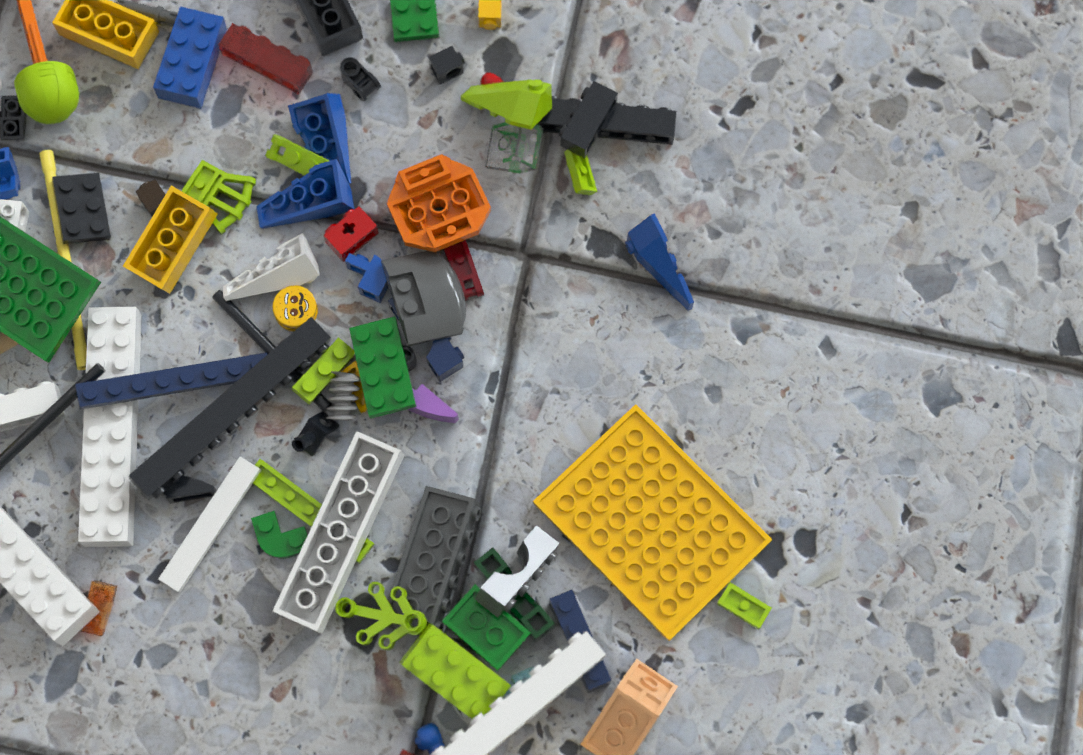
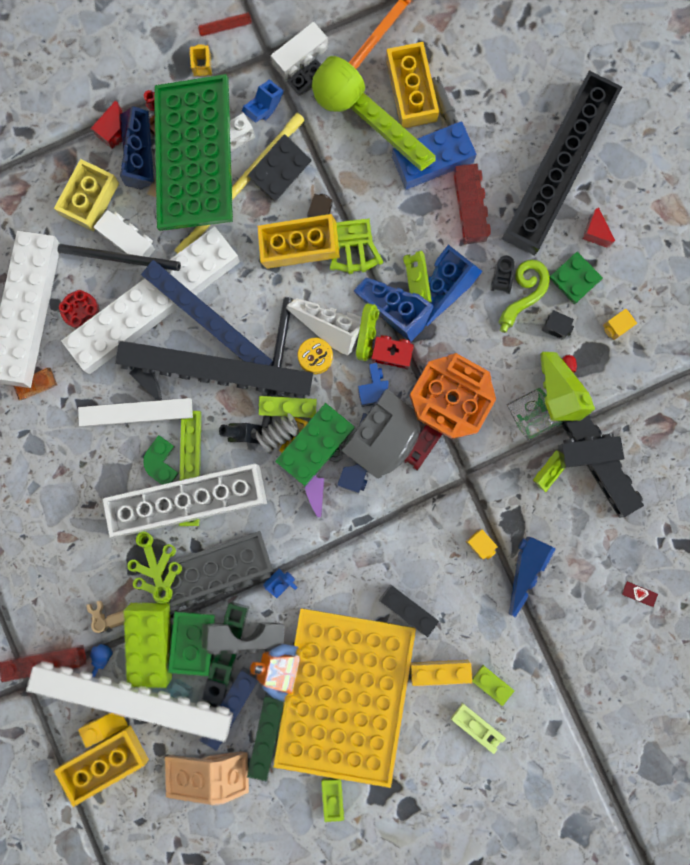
camera: 55 degrees right, 10 degrees up
(57, 507) = (78, 308): none -> red tile
(138, 75) = (393, 132): none -> lime plate
(312, 241) = (367, 332): none -> lime plate
(396, 715) = (100, 623): none -> tan bar
(399, 94) = (510, 313): none -> lime plant
(491, 502) = (279, 583): none -> blue bracket
(559, 642) = (214, 692): none -> black bracket
(577, 561) = (279, 670): none -> torso
(602, 284) = (482, 544): none -> yellow brick
(613, 398) = (409, 610): none -> black brick
(635, 624) = (265, 738): none -> dark green arch
(696, 411) = (441, 672): none -> yellow brick
(745, 373) = (492, 685): none -> lime plate
(759, 178) = (640, 594): none -> dark red sticker
(775, 416) = (477, 728): none -> yellowish green plate

